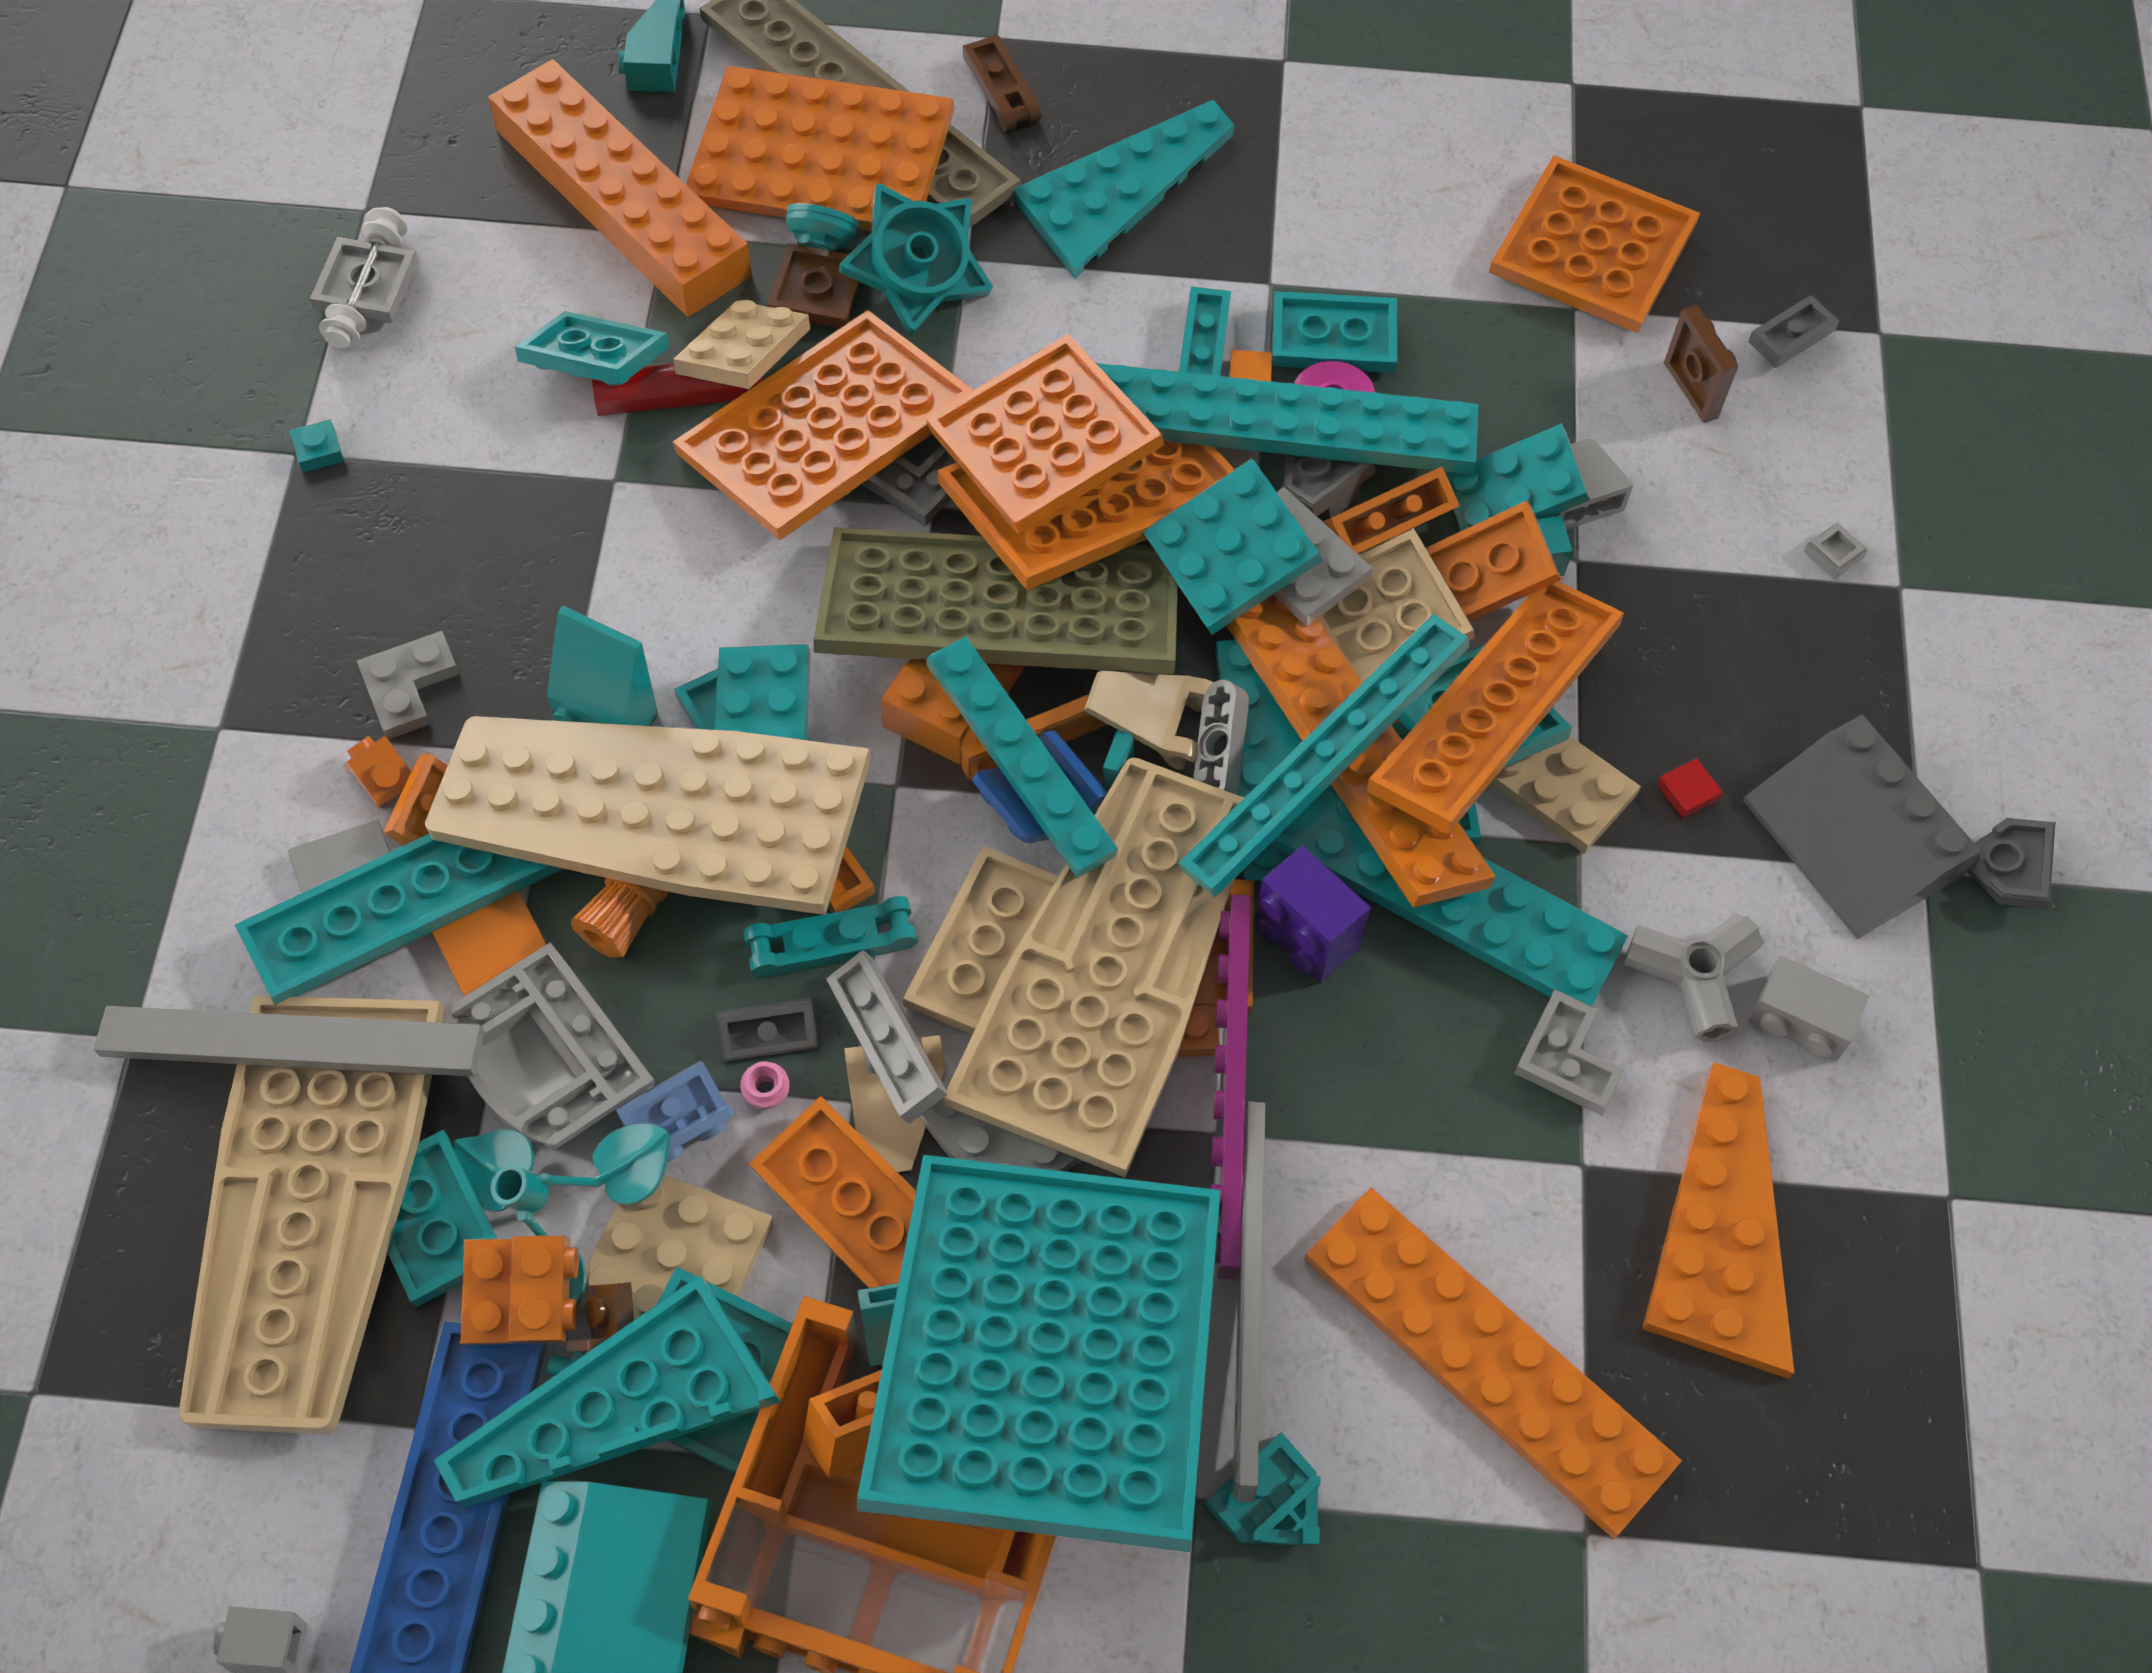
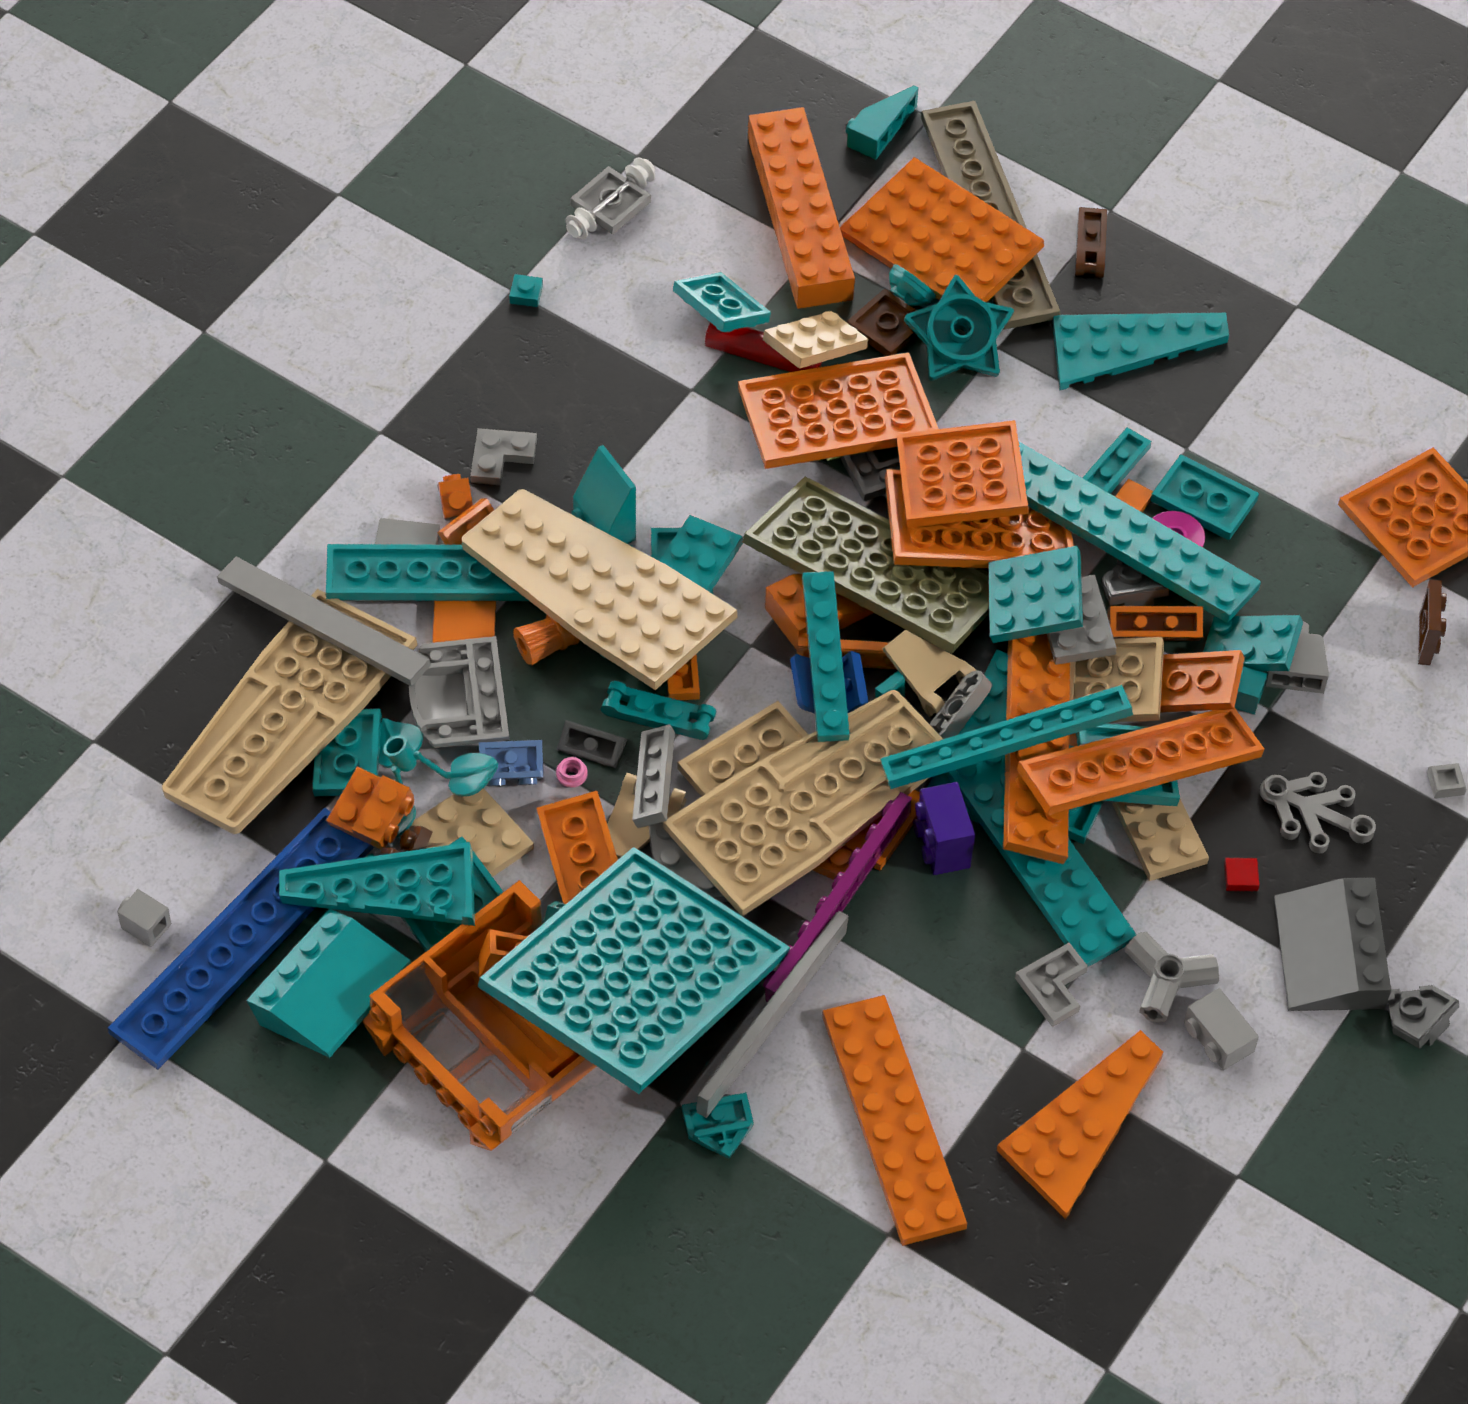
camera: 30 degrees right, 5 degrees down
(1716, 663) = (1314, 808): none -> light grey plant

